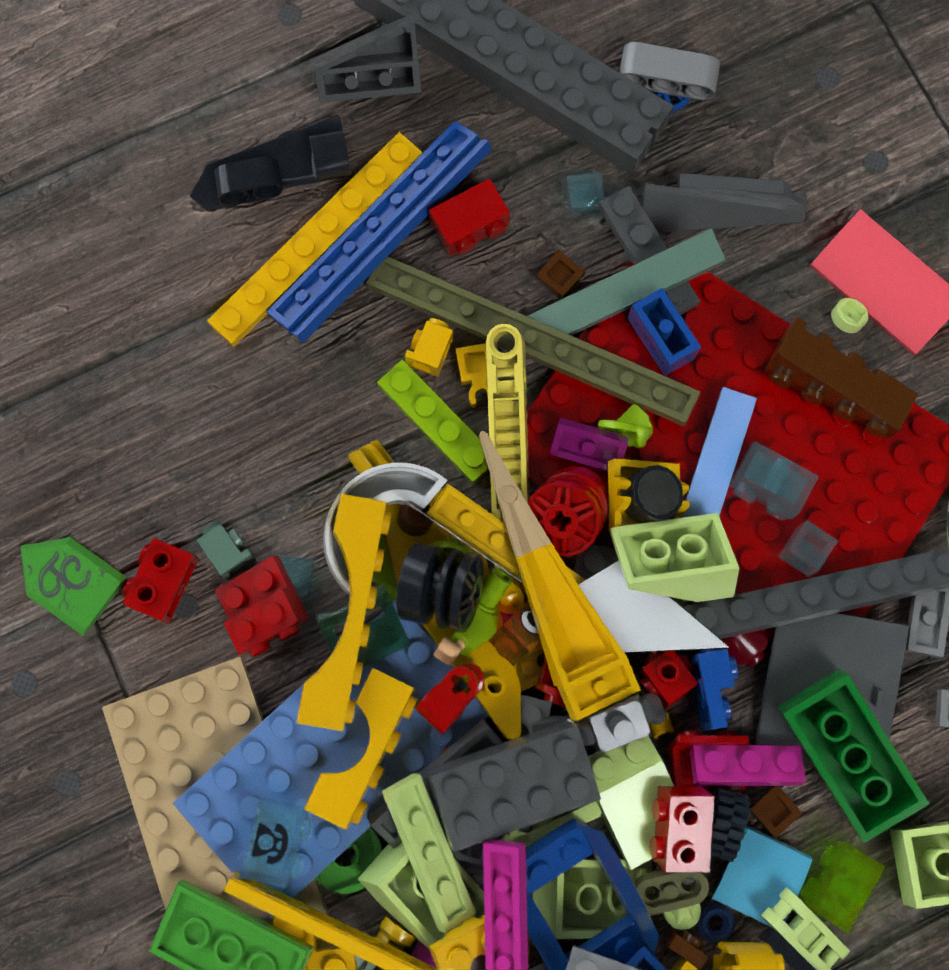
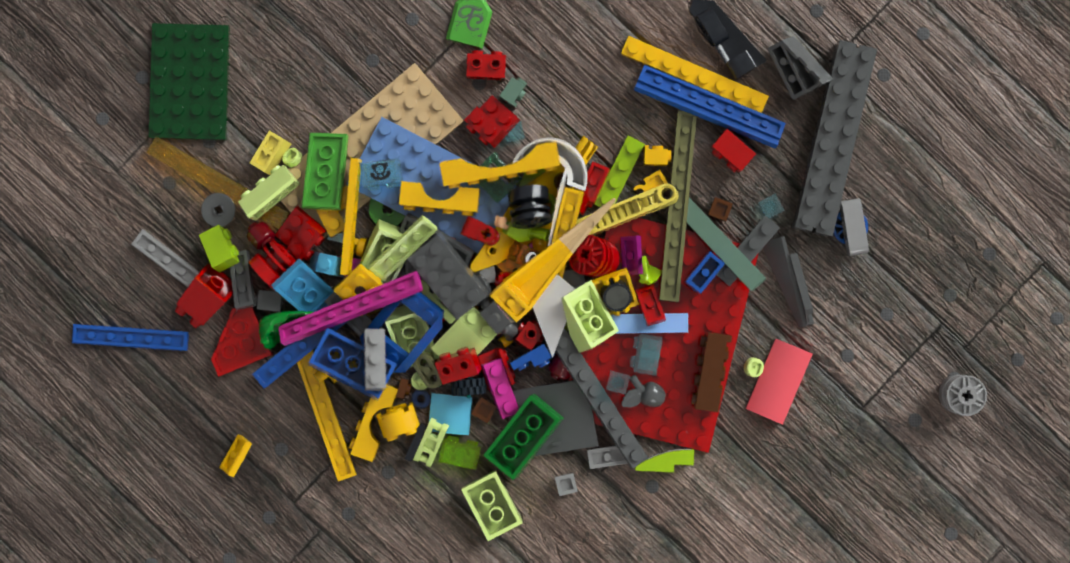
camera: 70 degrees right, 10 degrees up
(427, 453) = (595, 180): none -> red hinge
(689, 444) = (650, 305): none -> red plate
(843, 504) = (649, 394): none -> dark grey piece

